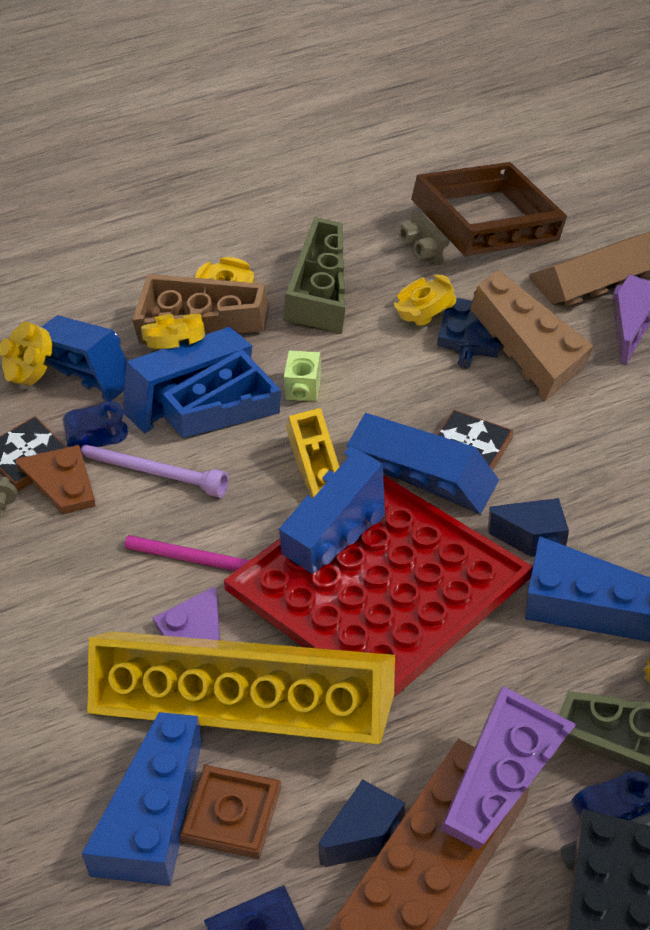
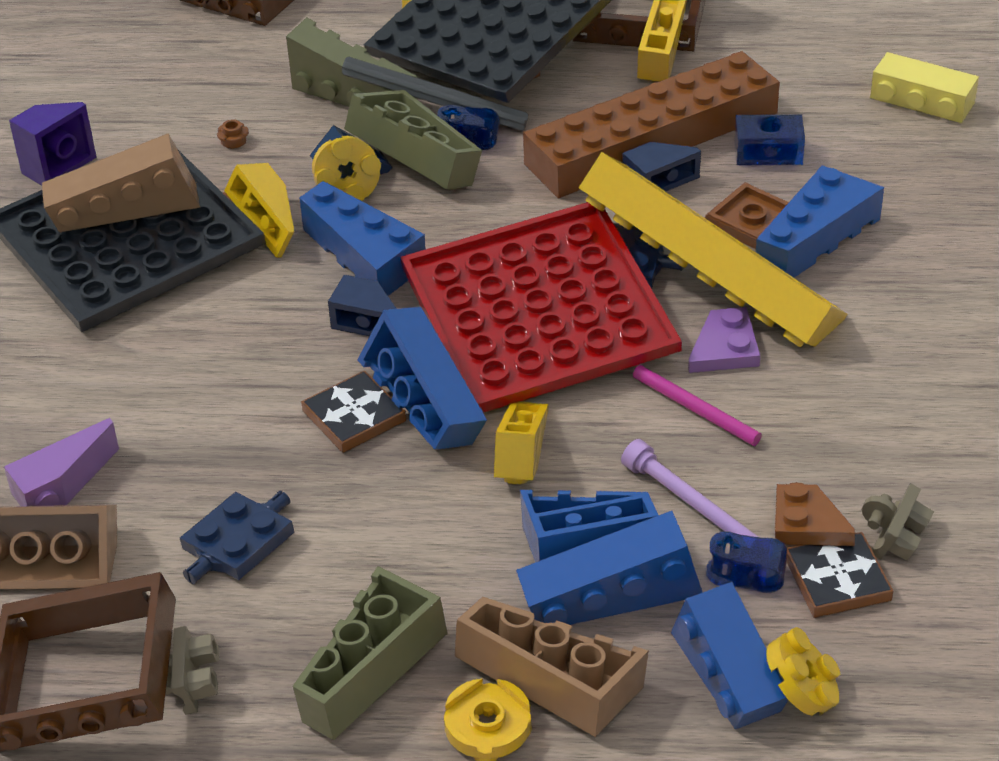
camera: 155 degrees left, 5 degrees down
(169, 331) = (607, 573): yellow plate -> none
(302, 376) = (475, 535): yellowish green brick -> none
(337, 514) = (548, 331): blue wedge -> none
(425, 299) = (253, 585): yellow plate -> none
(505, 761) = (543, 122): medium lavender wing -> none
(530, 333) = (200, 461): medium nougat wedge -> none

